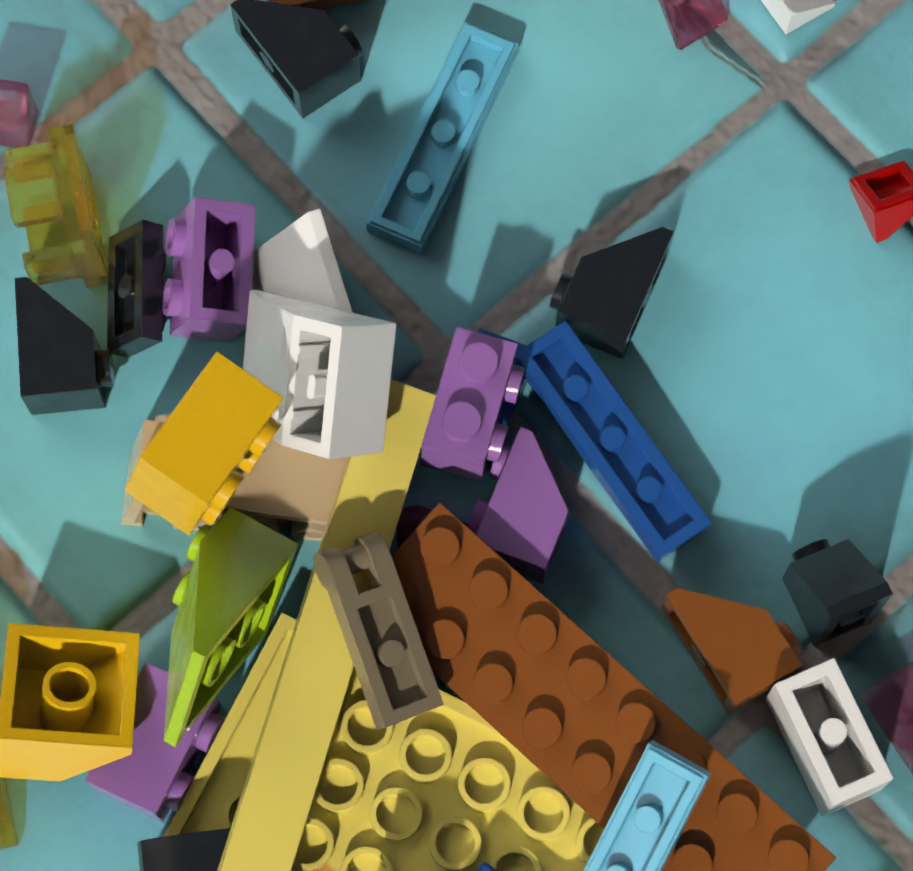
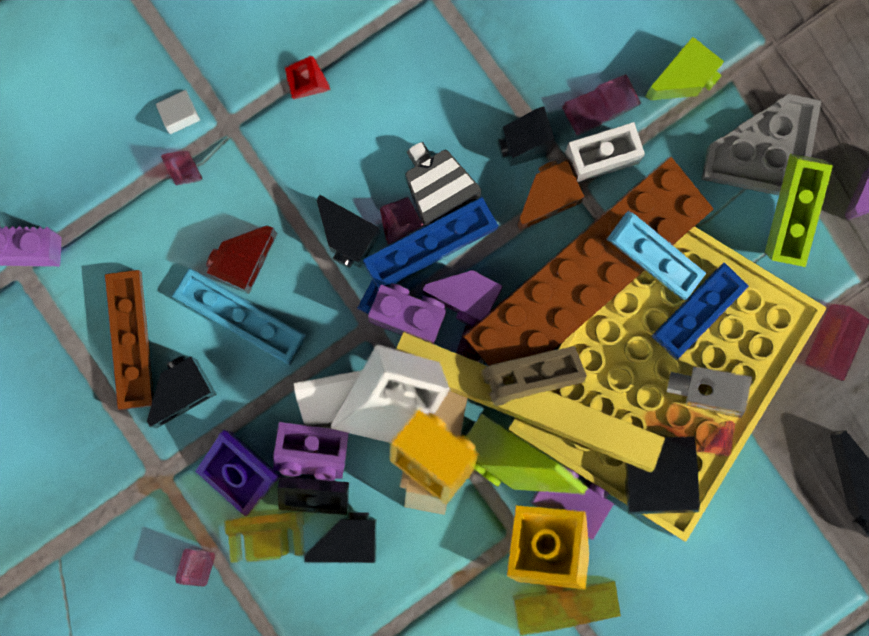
camera: 85 degrees left, 10 degrees up
(171, 161) = (237, 472): none -> dark purple slope
(543, 124) = (241, 258): none -> clear red slope
(652, 386) = (399, 219): none -> clear pink slope
(724, 441) = (438, 184): none -> torso

